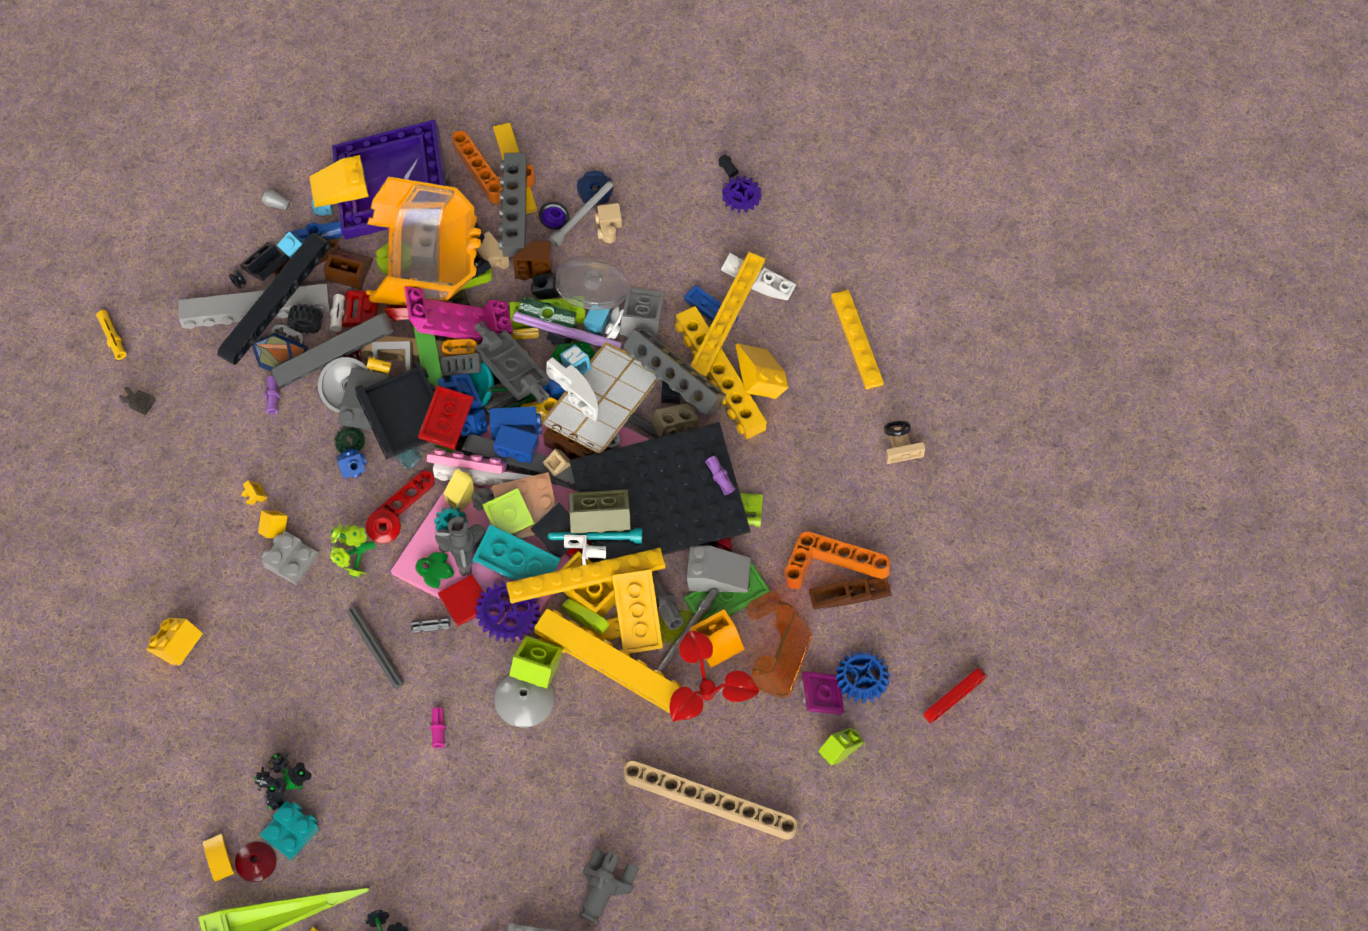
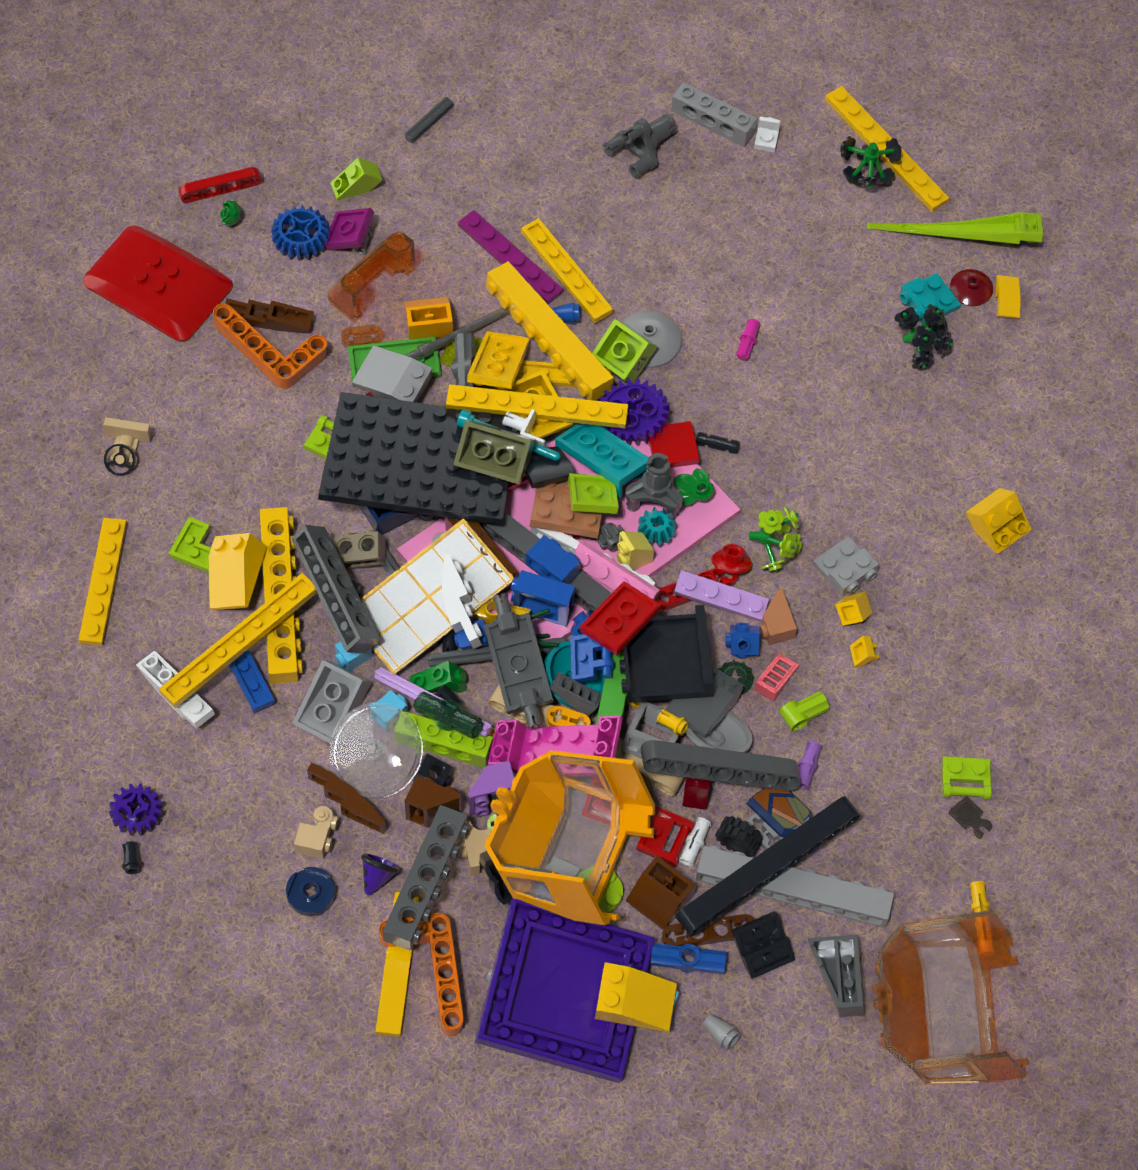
camera: 160 degrees left, 0 degrees up
(118, 242) = (940, 998): none -> windscreen
(148, 435) = (966, 771): none -> lime plate
(202, 259) = (841, 970): none -> dark grey wedge
(237, 279) = (803, 933): black bush -> none
(290, 244) = (723, 932): medium azure brick -> none
(290, 427) = (799, 713): none -> lime piece
(318, 439) = (766, 689): none -> coral slope
(329, 490) = (778, 621): none -> nougat slope
(375, 647) = (784, 441): dark grey axle -> none
(381, 492) = (721, 596): none -> lavender plate
(494, 283) = (488, 782): none -> medium lavender slope
(556, 462) = (513, 536): tan slope -> none
(557, 237) = (387, 839): light grey piece -> none
(577, 358) = (442, 642): medium azure brick -> none
(585, 616) = (544, 363): lime beam -> none
(591, 248) = (351, 802): none -> reddish brown slope
(602, 690) = (569, 312): none -> blue cone
(613, 328) = (373, 687): white plate -> none
(620, 731) = (566, 271): none -> yellow plate
(678, 731) = (505, 251): none -> magenta plate
(689, 704) = (460, 286): red plant -> none
(717, 807) = (482, 160): tan beam -> none
(720, 475) = (347, 438): medium lavender pin -> none
(808, 383) = (189, 547): none -> lime plate
(809, 838) = (428, 119): none -> dark grey axle
(930, 671) = (230, 213): none -> green plate
(956, 591) = (158, 283): none -> red wedge

